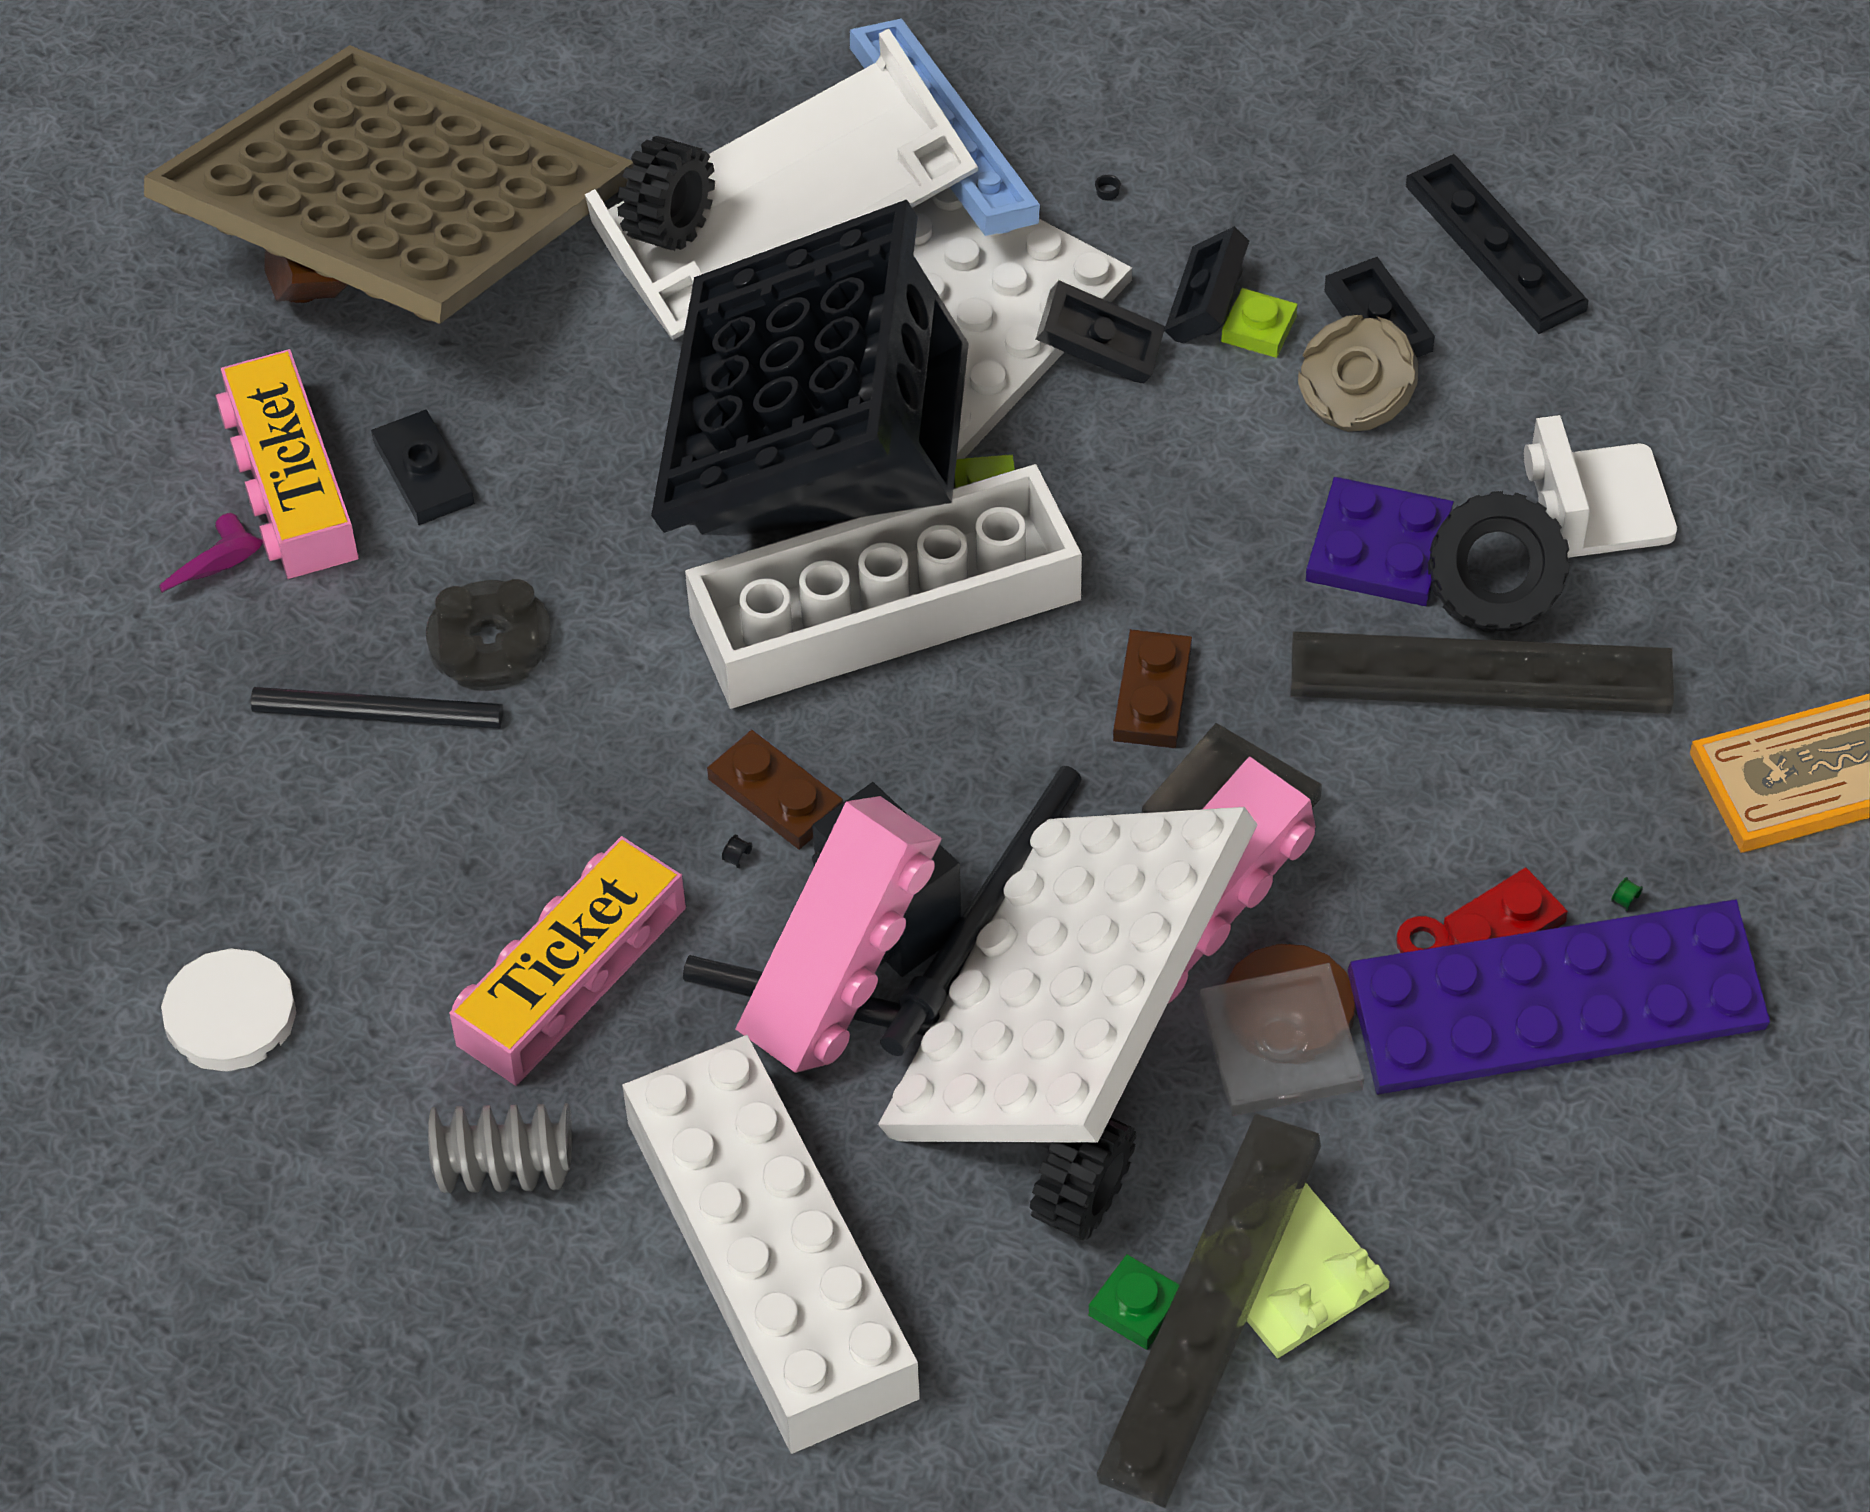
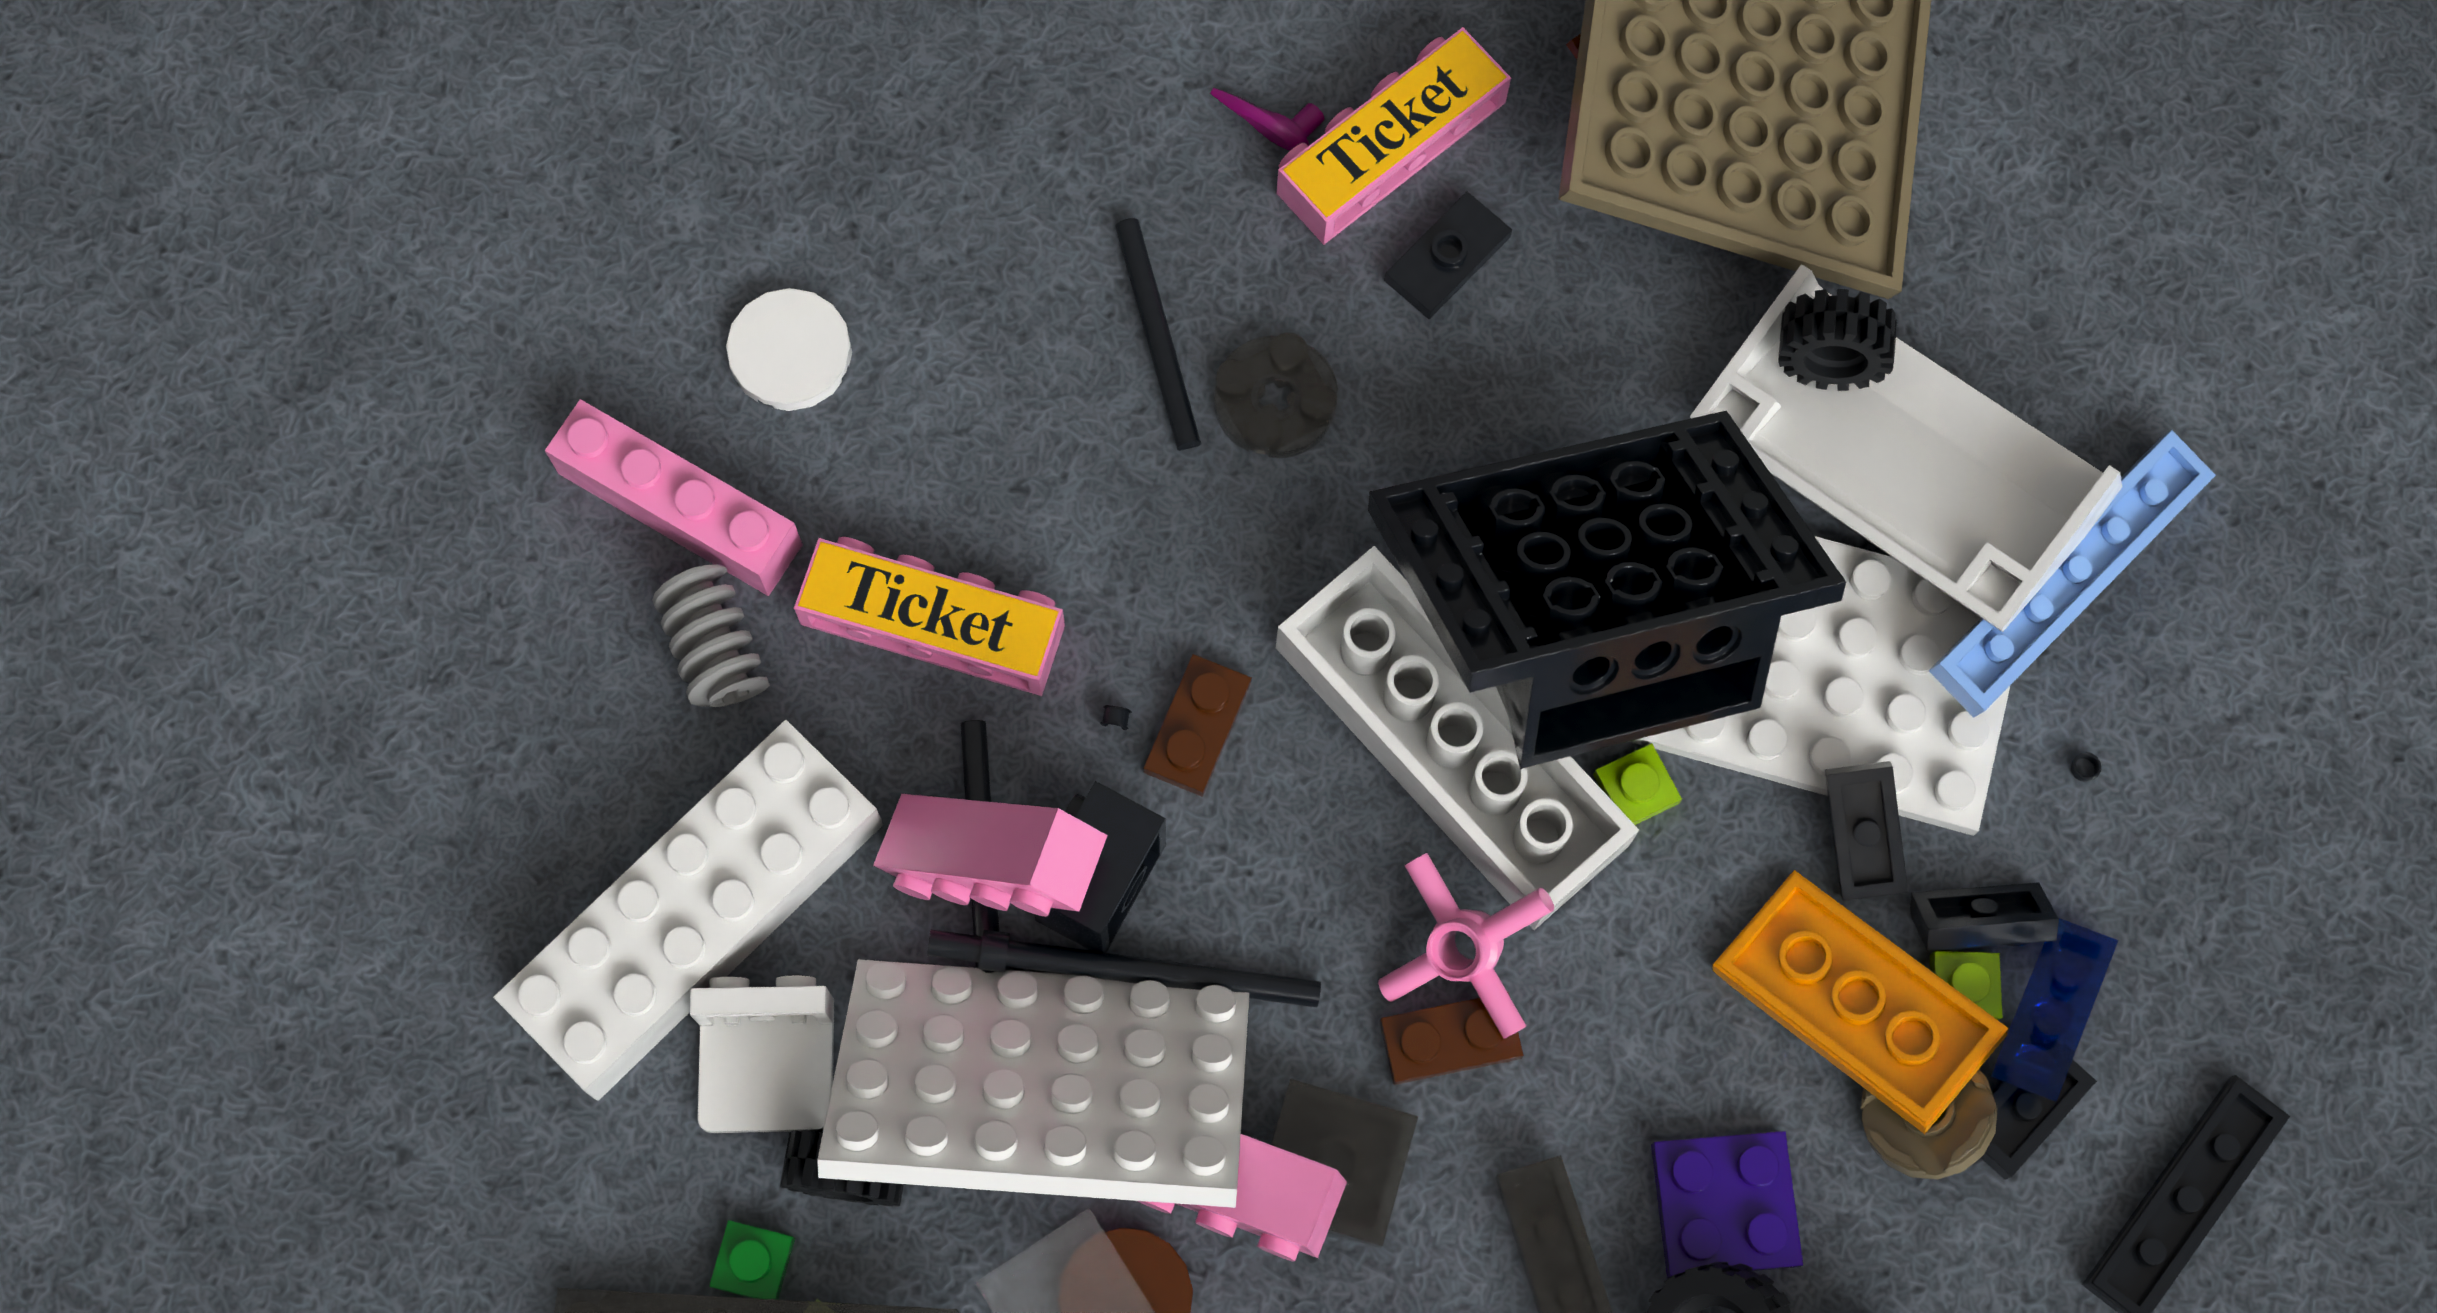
camera: 65 degrees right, 20 degrees up
(335, 1138) = (674, 497): none -> bright pink brick
(938, 1224) = (764, 1054): none -> white bracket
(1054, 634) = (1487, 935): none -> bright pink bar
(1244, 385) = (1860, 1001): none -> light orange tile
(1311, 256) = (2054, 1010): none -> clear blue plate

